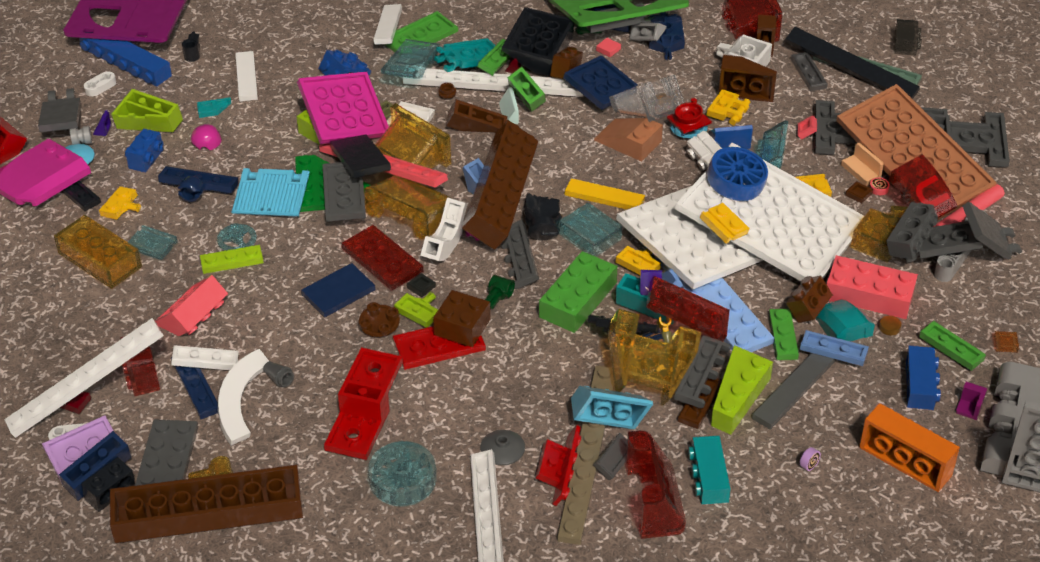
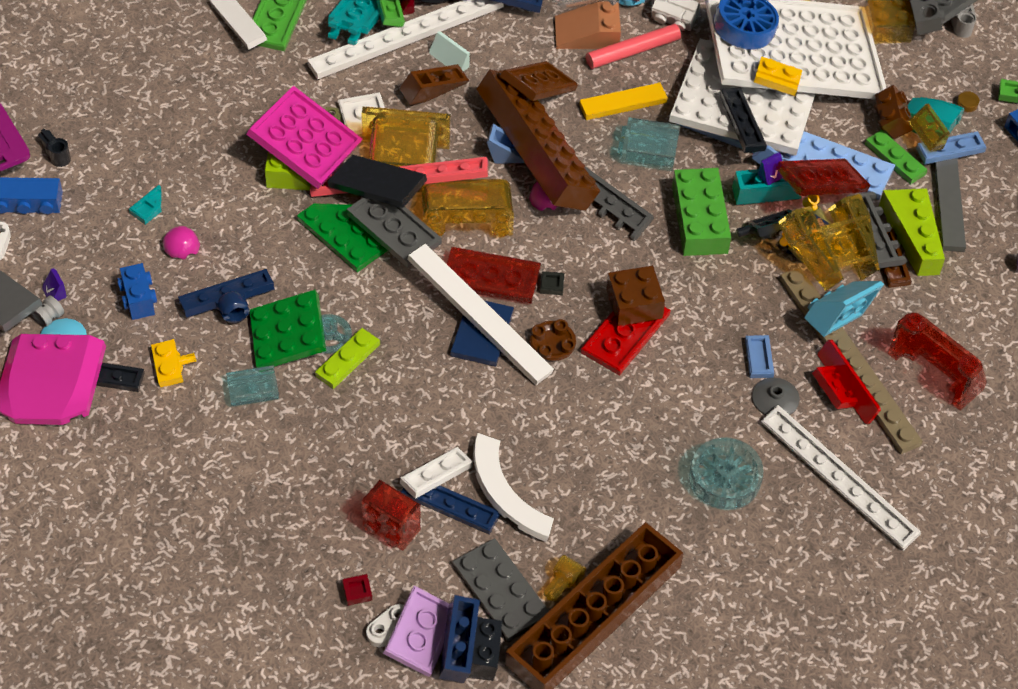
camera: 40 degrees left, 10 degrees up
(83, 377) = (362, 562): white plate -> none
(98, 251) = (214, 426): clear yellow brick -> none
(147, 112) = (97, 248): lime wedge -> none
(192, 307) = (366, 429): coral slope -> none
(209, 219) = (287, 329): none -> green plate
(246, 76) = (147, 151): white tile -> none
(271, 192) = (319, 264): medium azure window -> none
(279, 374) = (519, 446): dark grey cone -> none
(337, 62) = (240, 92): blue bracket -> none
(341, 276) = (480, 314): none -> white tile
(363, 403) = (634, 428): red bracket -> none
(411, 59) = (310, 48): clear light blue slope -> none
(417, 308) = (577, 308): lime plate -> none
(447, 90) = (371, 65): reddish brown plate -> none
(448, 234) = (530, 223): white arch -> none
(499, 289) = (629, 248): dark green axle -> none
(519, 412) = (759, 356): none -> medium blue tile
(526, 89) = (457, 26): bright green brick -> none
(542, 217) = (597, 155): black hair -> none
(544, 147) = (539, 80): none -> reddish brown tile
(612, 457) = (877, 350): dark grey tile -> none
(637, 260) = (719, 153): yellow plate -> none
(651, 162) = (633, 46): none -> coral piece
(667, 241) = (742, 120): none -> black tile
(709, 470) = (961, 316): teal brick -> none
(821, 322) = (930, 128): none -> clear yellow slope
(872, 286) = (930, 71): coral brick -> none

